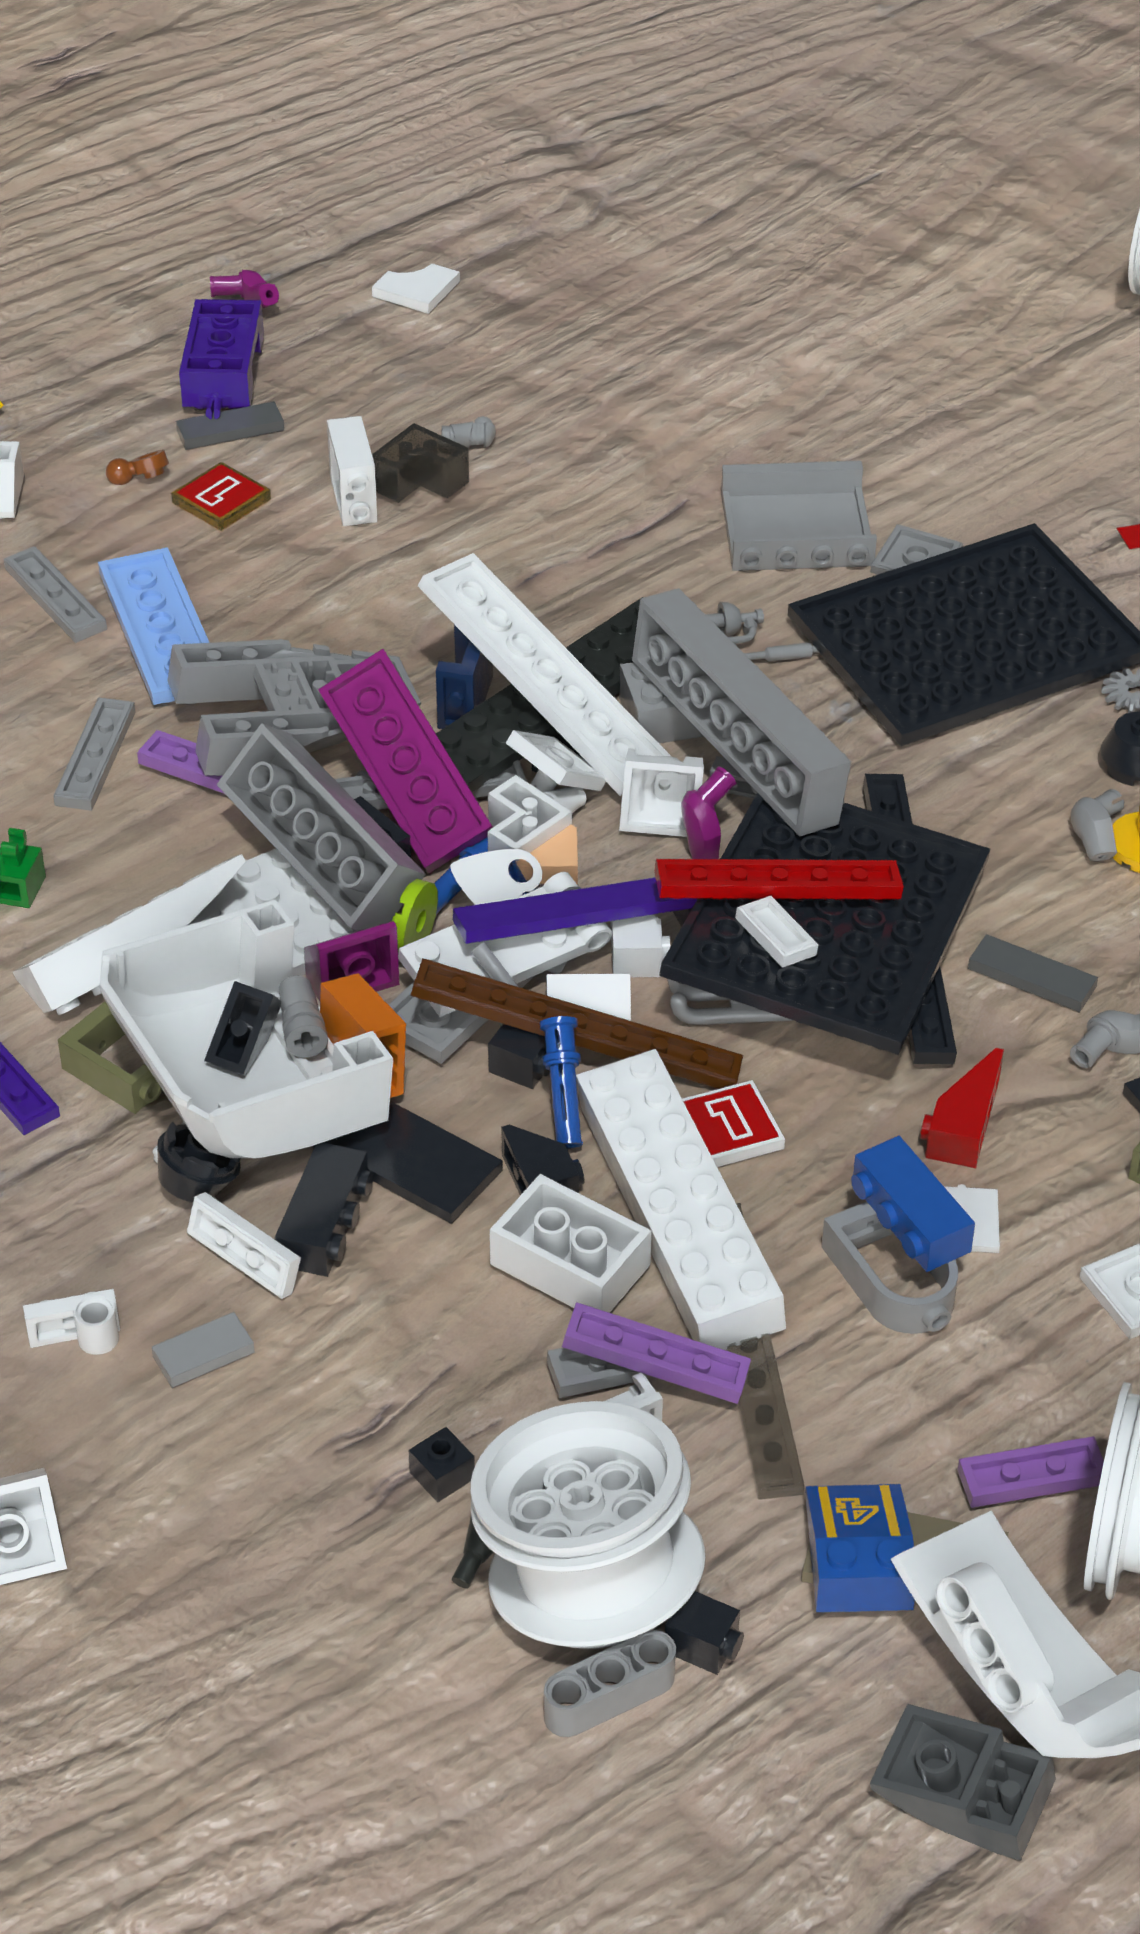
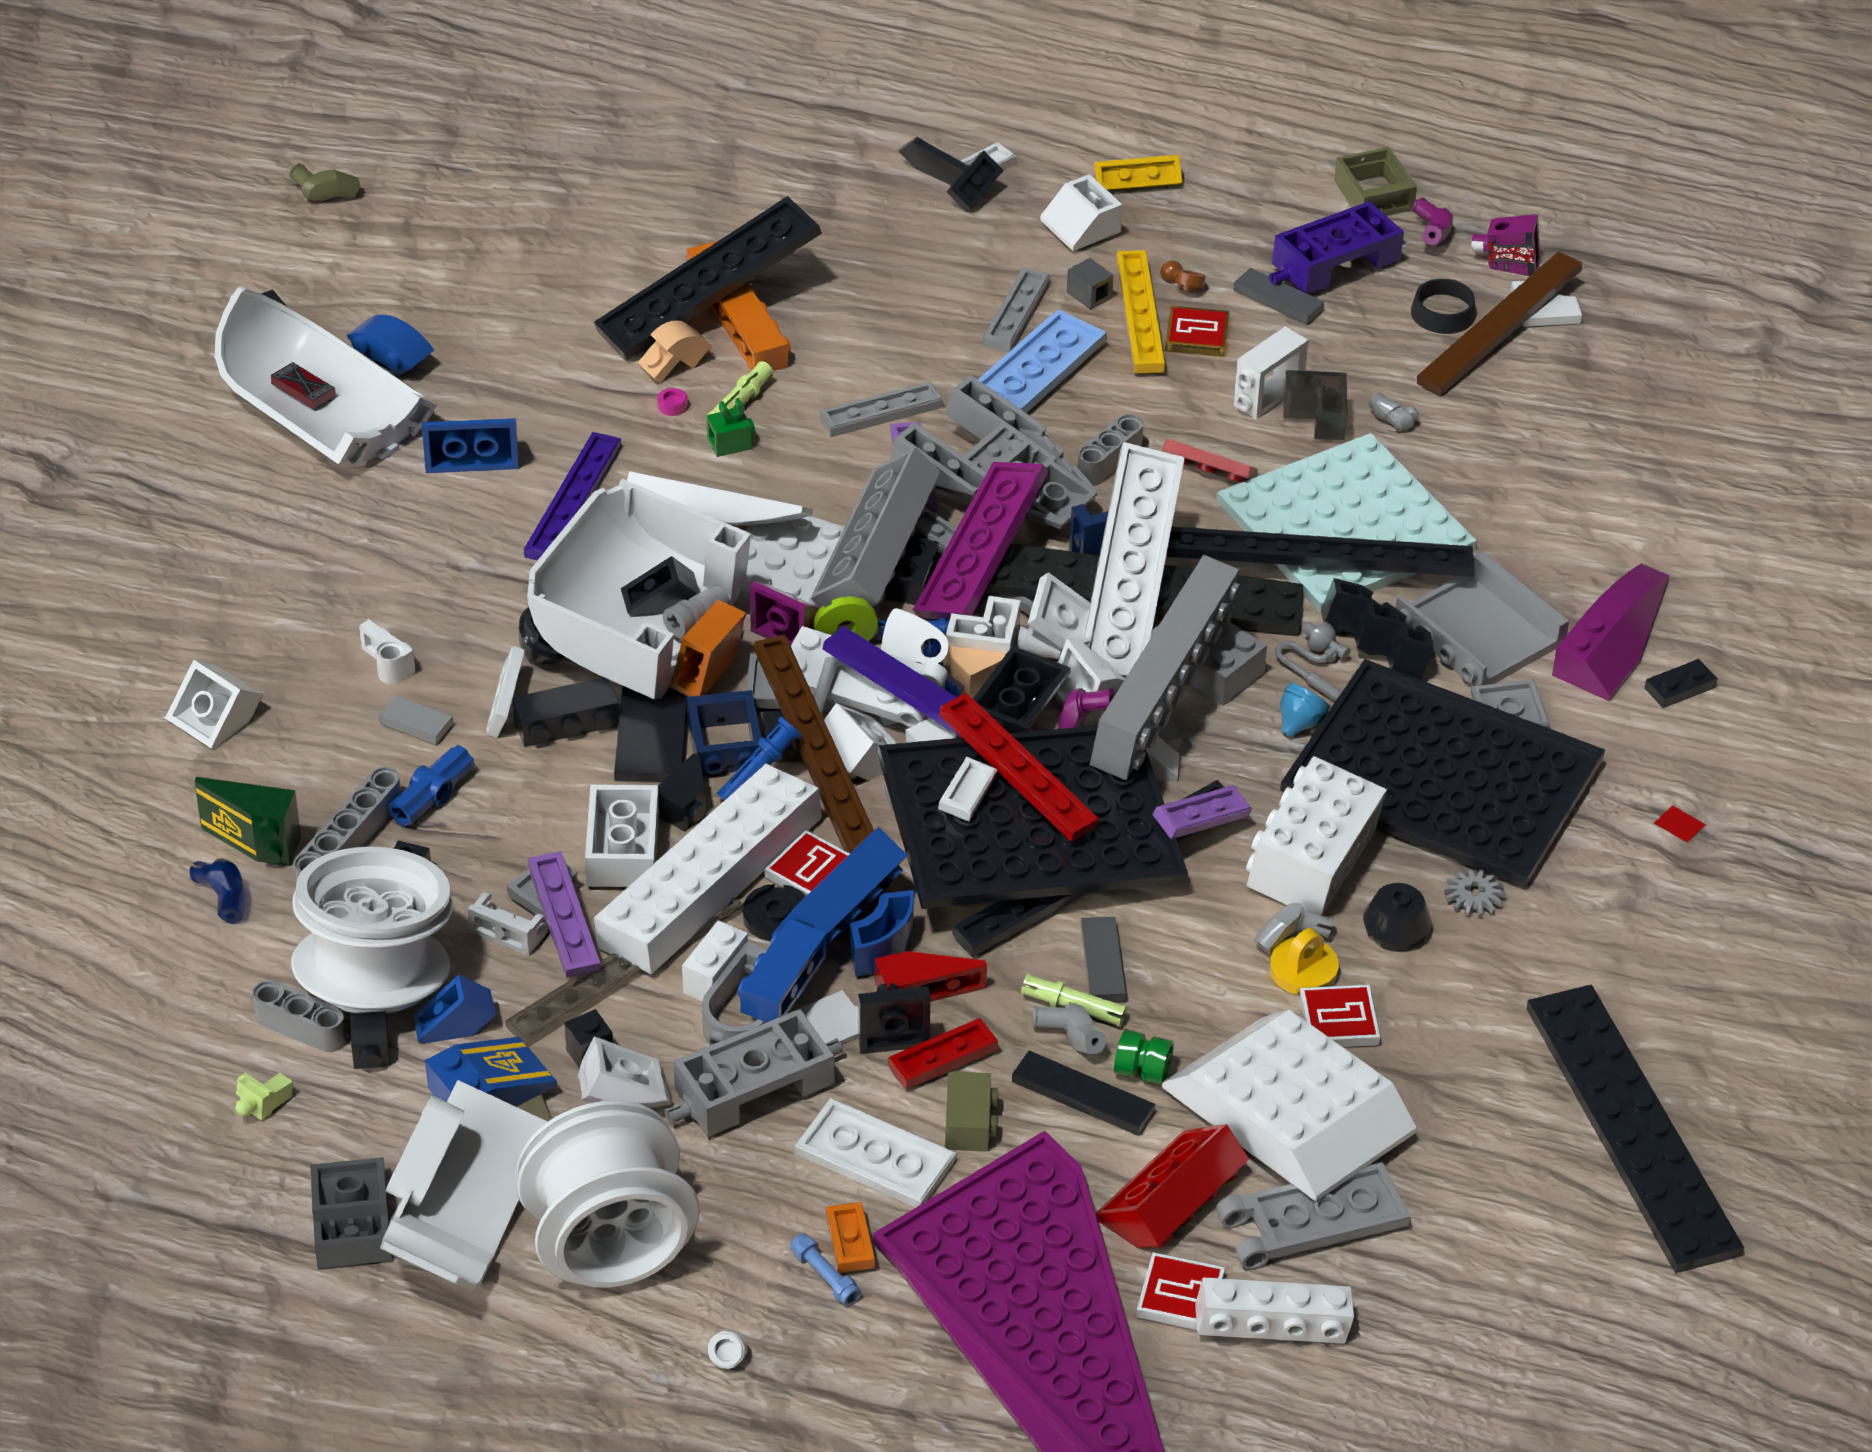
camera: 55 degrees right, 0 degrees up
(81, 526) = (1090, 283): none -> dark grey brick
(157, 515) = (1140, 311): none -> yellow plate
(176, 281) = (1389, 199): none -> olive window
(258, 1574) = (250, 818): none -> dark green slope
(332, 1383) = (431, 786): none -> blue piece
(333, 617) = (1101, 454): none -> light grey beam
(333, 1652) = (227, 884): none -> clear blue arm
(334, 257) = (1511, 244): none -> magenta torso
(342, 1495) = (356, 819): none -> light grey beam
(357, 355) = (1440, 322): none -> black tyre
(388, 582) = (1211, 462): none -> plate
(422, 319) = (1499, 323): none -> reddish brown tile
(465, 1120) = (722, 710): none -> dark blue window
(581, 530) = (1344, 494): none -> light aqua plate
(628, 835) = (1020, 688): none -> black slope
(638, 550) = (1321, 551): none -> black plate
(710, 1789) = (262, 1098): none -> yellowish green piece
(724, 1523) = (454, 1011): none -> blue slope
(758, 575) = (1377, 627): none -> black brick
(770, 1184) = (768, 907): none -> black tile
(817, 1107) = (850, 886): none -> blue brick
(818, 675) = (1301, 709): none -> dark azure helmet
(821, 1263) = (711, 958): none -> white brick
(858, 1426) = (582, 1030): none -> black brick
(886, 1099) = (883, 931): none -> blue brick
(891, 466) = (1611, 634): none -> magenta wedge
(915, 798) = (1202, 811): none -> medium lavender tile
(942, 1424) = (621, 1074): none -> white slope
(974, 448) = (1680, 683): none -> black plate
(1013, 742) = (1315, 836): none -> white brick
(1017, 1342) = (719, 1080): none -> light grey brick
(1026, 1154) = (893, 1018): none -> black tile
(1066, 1023) = (1059, 995): none -> yellowish green pin
(1082, 1149) = (943, 1053): none -> red plate

